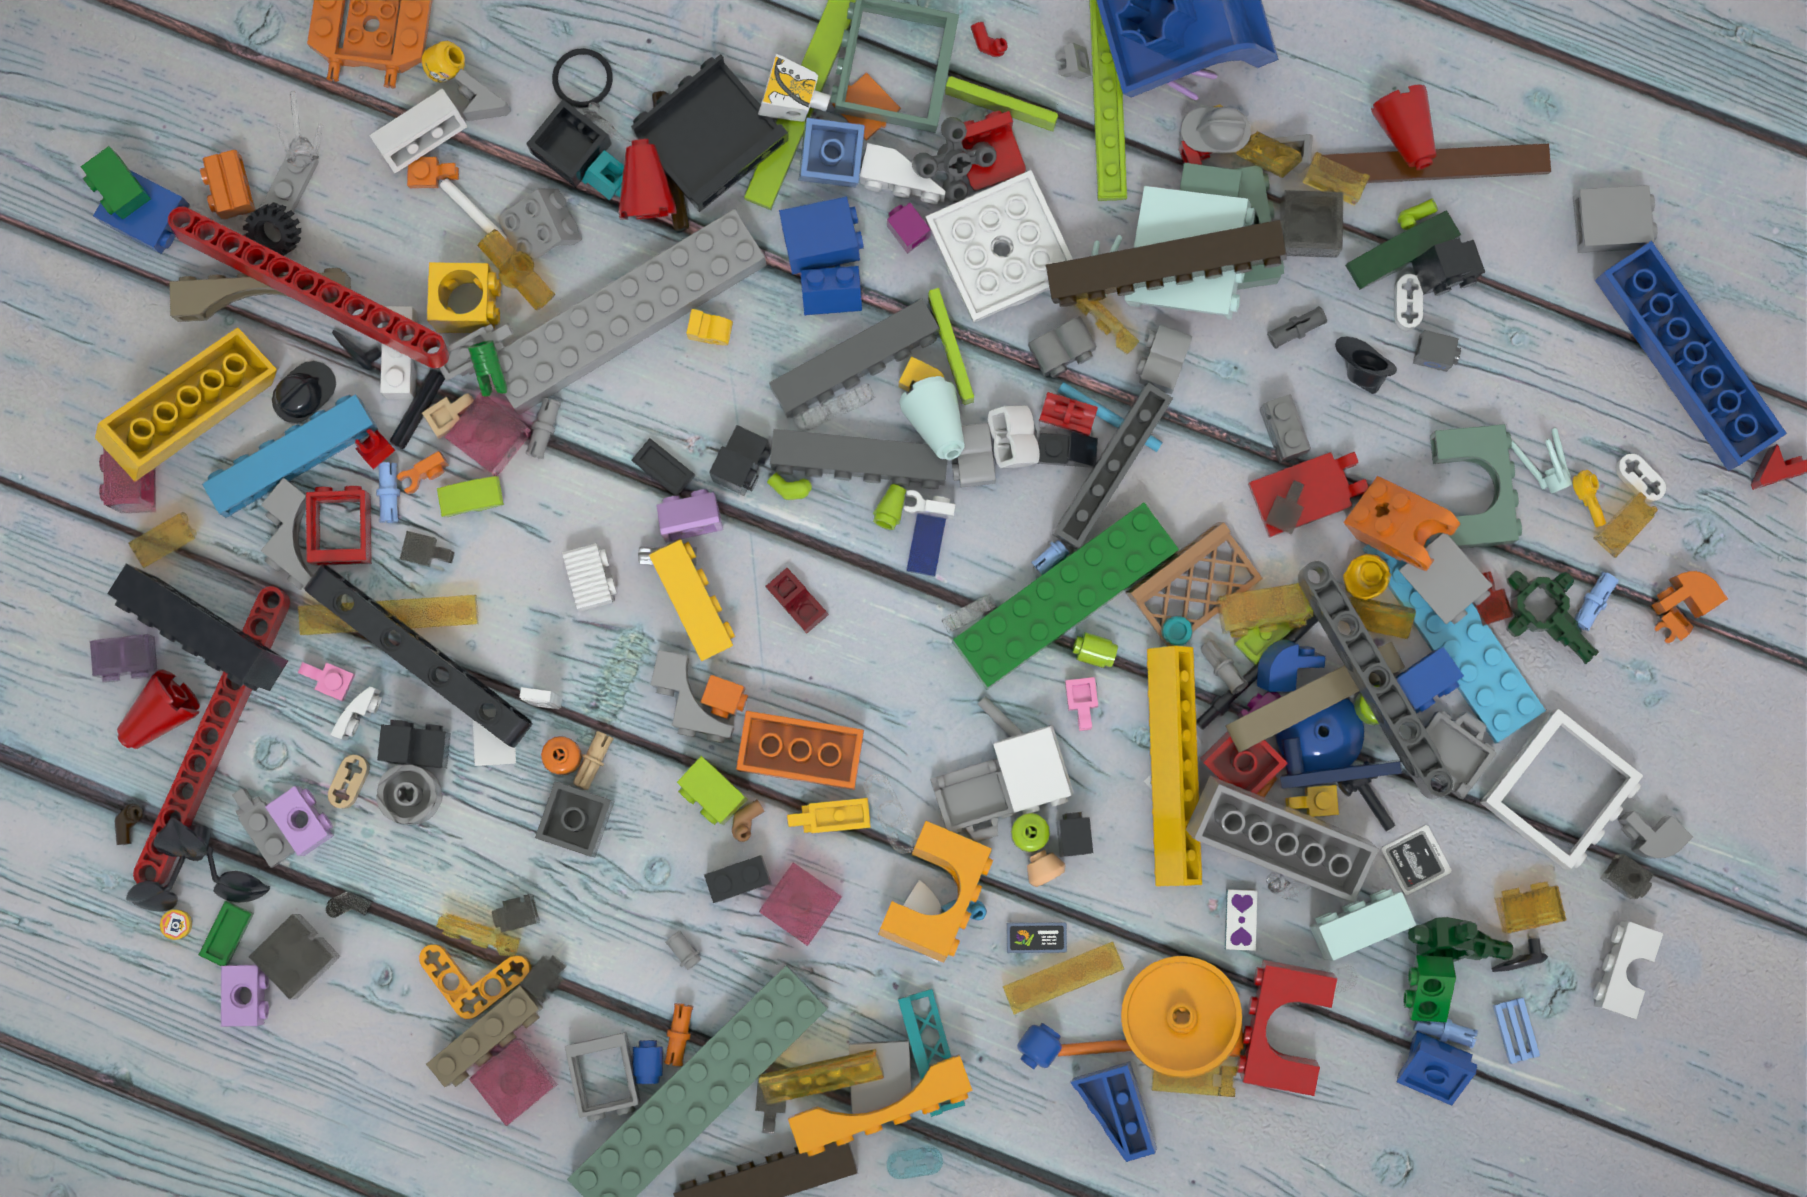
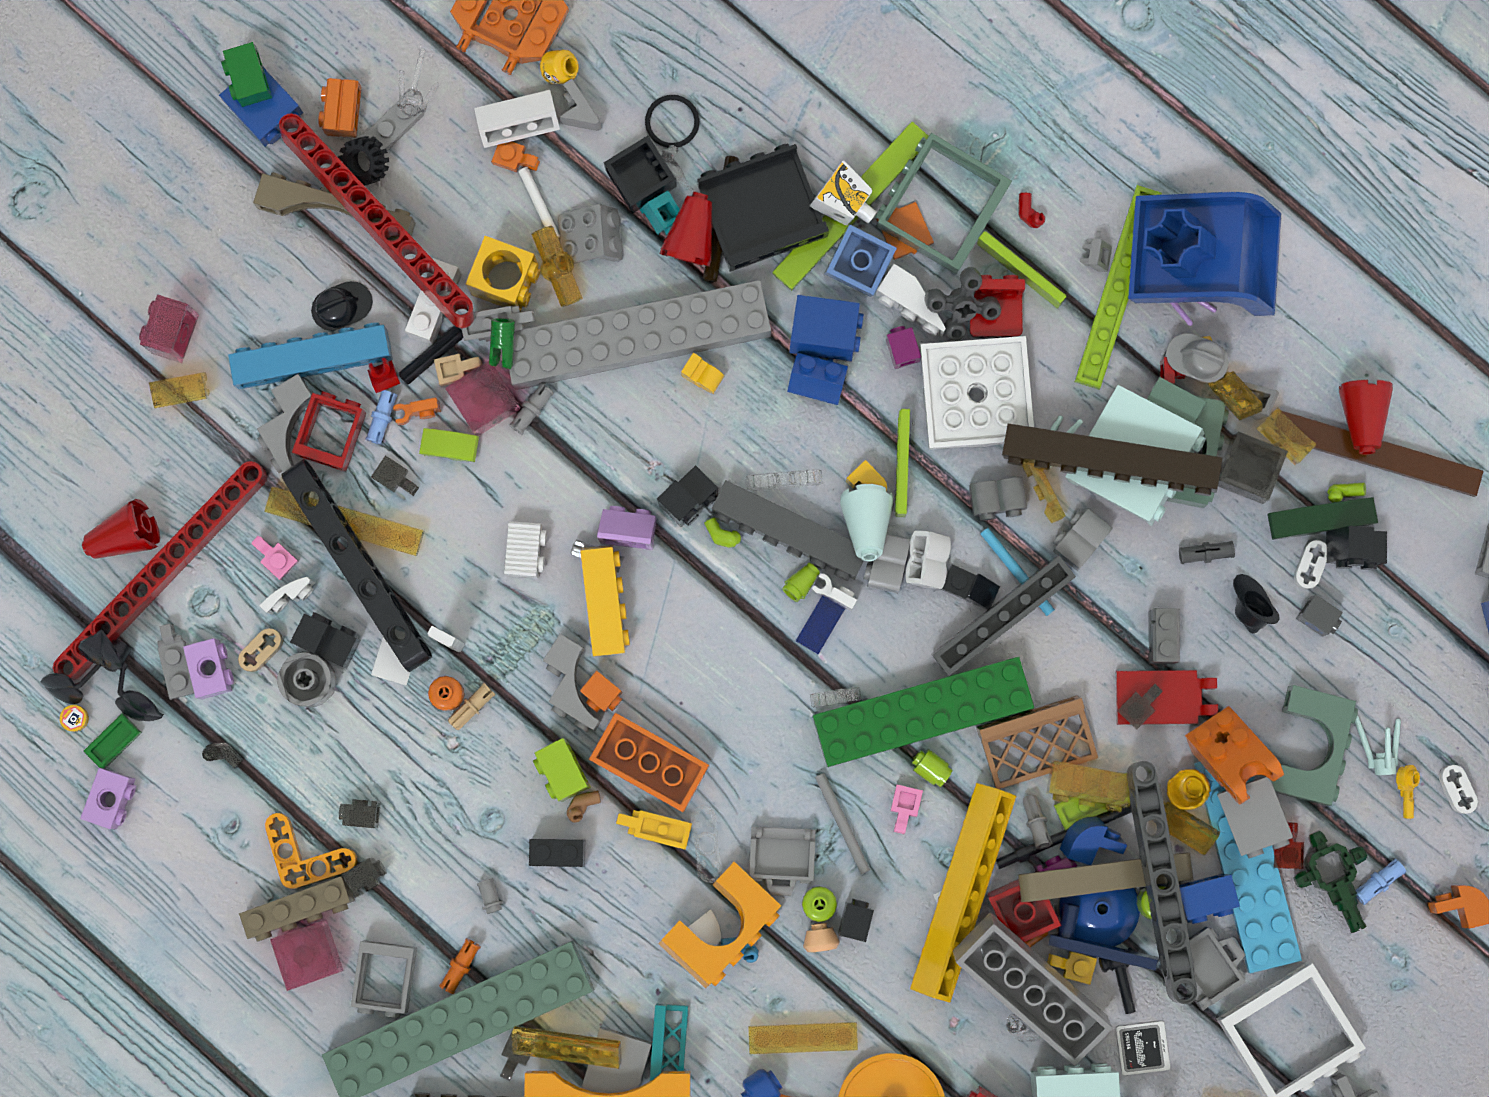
camera: 25 degrees right, 0 degrees up
(123, 657) = (111, 476): clear purple brick -> none
(125, 821) = (62, 616): dark brown arm -> none
(185, 404) = (238, 283): yellow brick -> none
(197, 629) = (180, 476): black brick -> none
(292, 958) = (159, 782): clear smoke piece -> none
(356, 353) = (397, 289): black bar -> none
(480, 934) = (323, 819): clear yellow hinge -> none
(574, 819) = (438, 752): dark grey brick -> none
(648, 1062) = (425, 980): blue brick -> none
(663, 467) = (620, 478): black tile -> none
(796, 600) = (693, 633): dark red slope -> none
(800, 904) = (602, 893): clear pink brick -> none
(855, 358) = (816, 444): dark grey brick -> none
(1033, 769) = (842, 851): white brick -> none
(1037, 937) = (792, 995): tile -> none
(1050, 557) = (922, 674): light blue pin -> none
(1068, 414) = (982, 556): red hips -> none
(1176, 630) = (1007, 776): teal tile -> none
(1241, 920) = (973, 1044): white tile -> none
(1625, 524) = (1430, 825): clear yellow hinge -> none
(1676, 623) = (1444, 927): orange tile -> none

